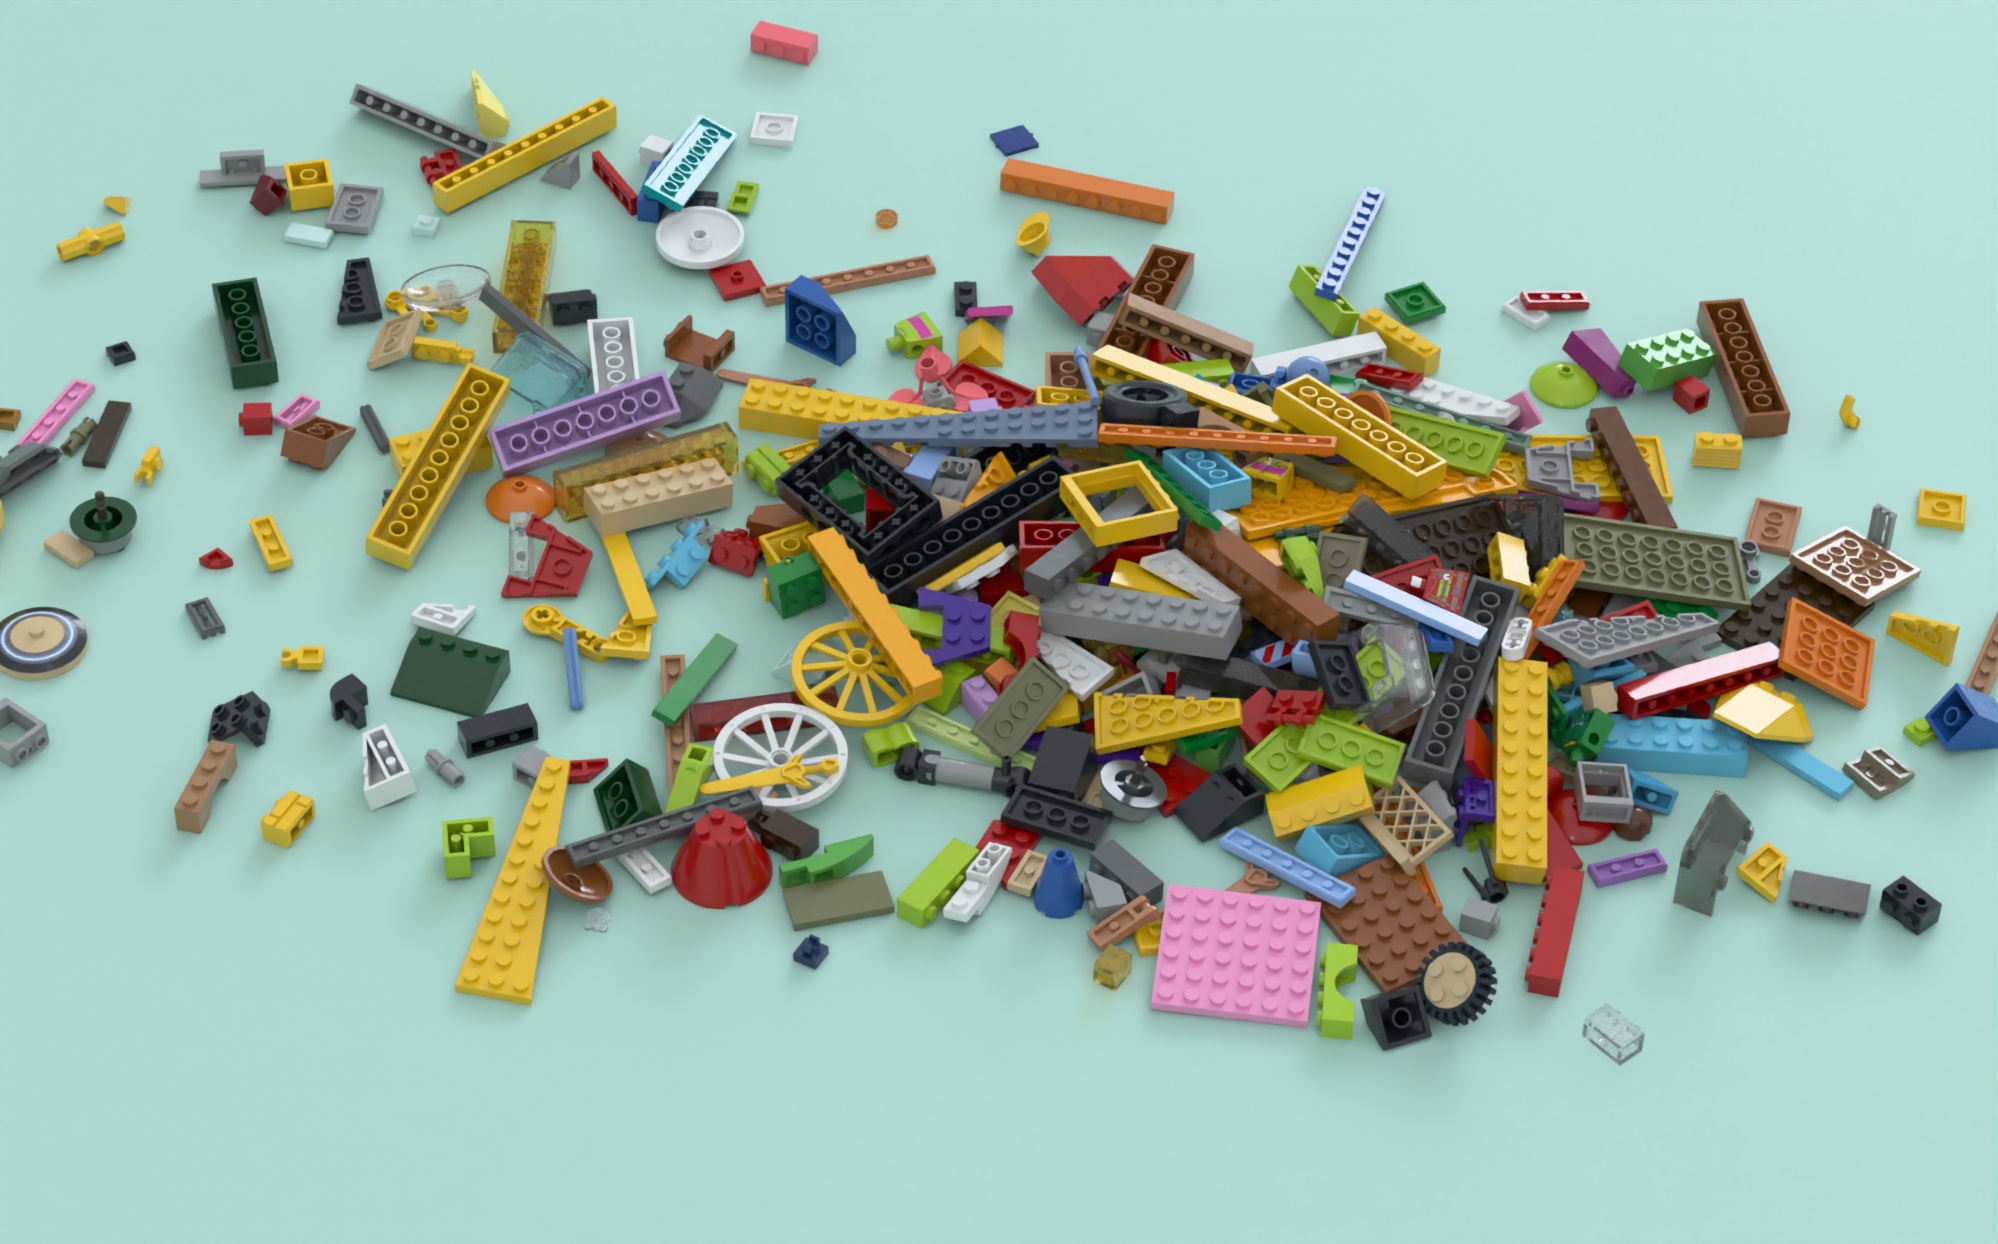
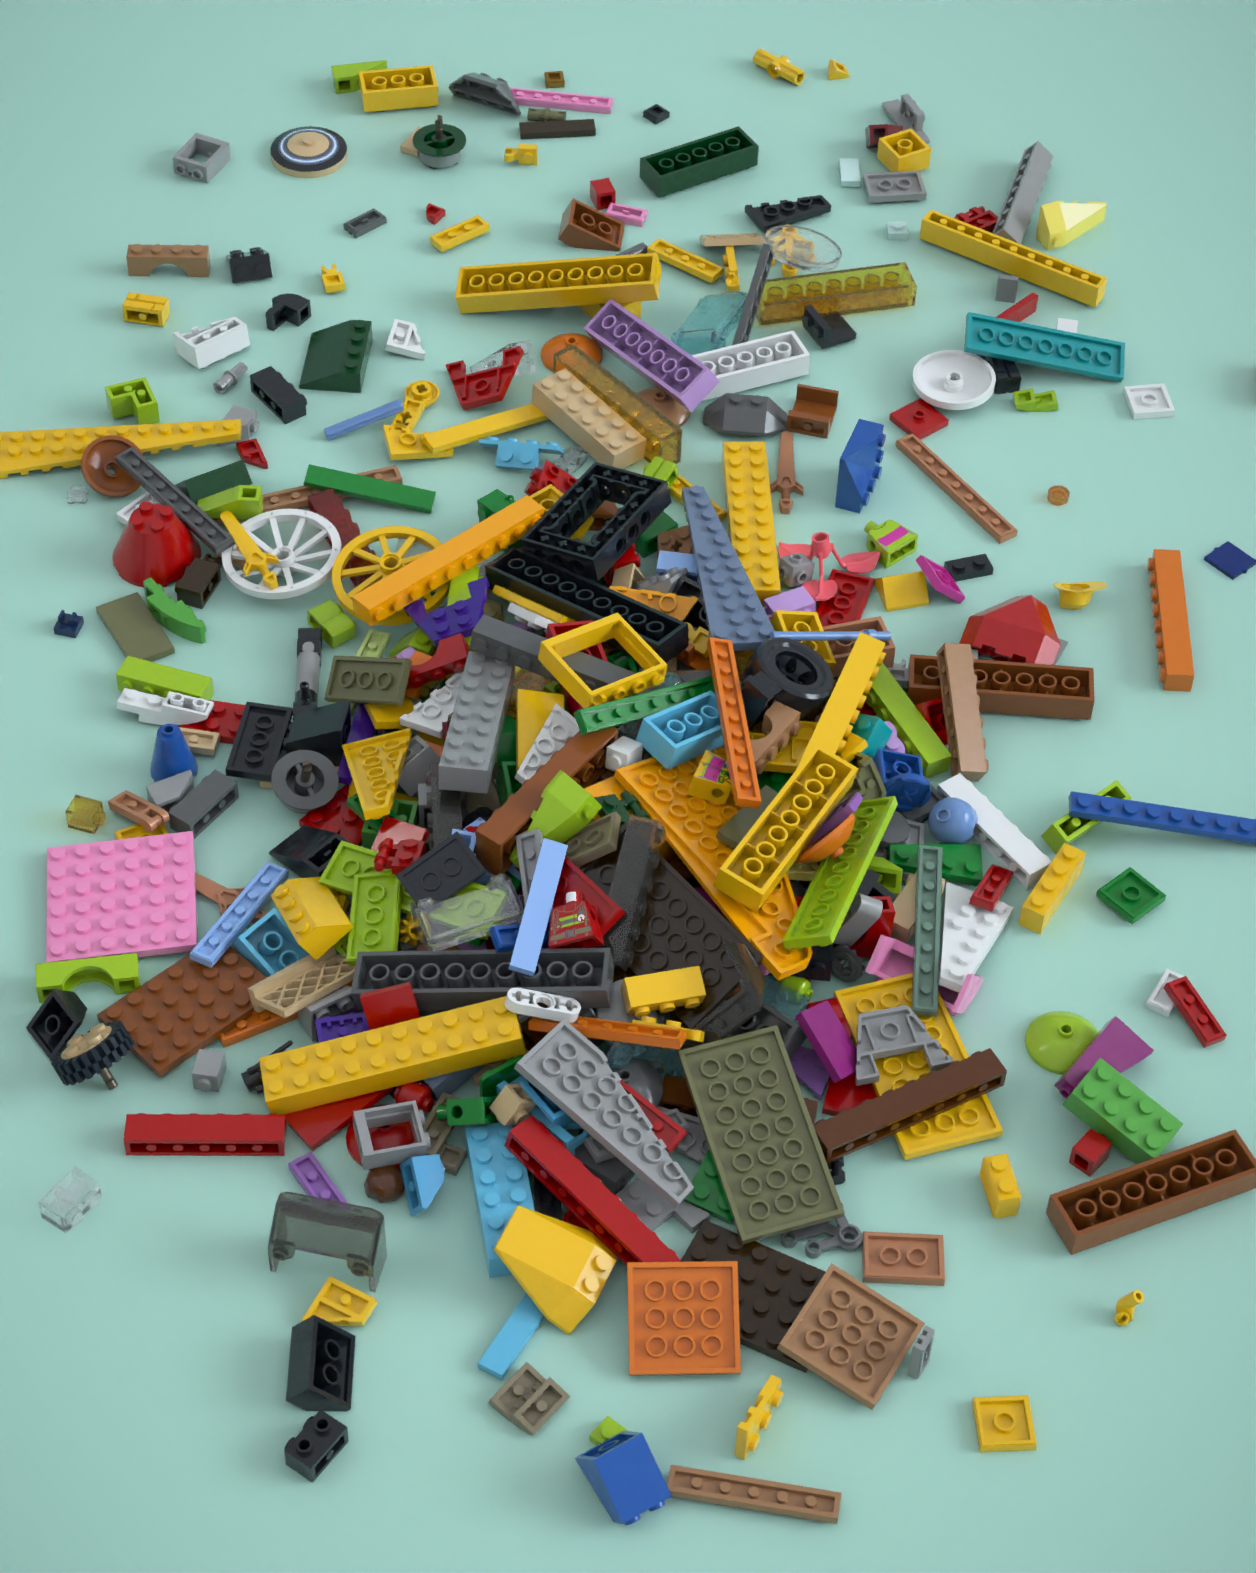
camera: 75 degrees right, 5 degrees up
(406, 382) = (686, 261): none -> yellow plate

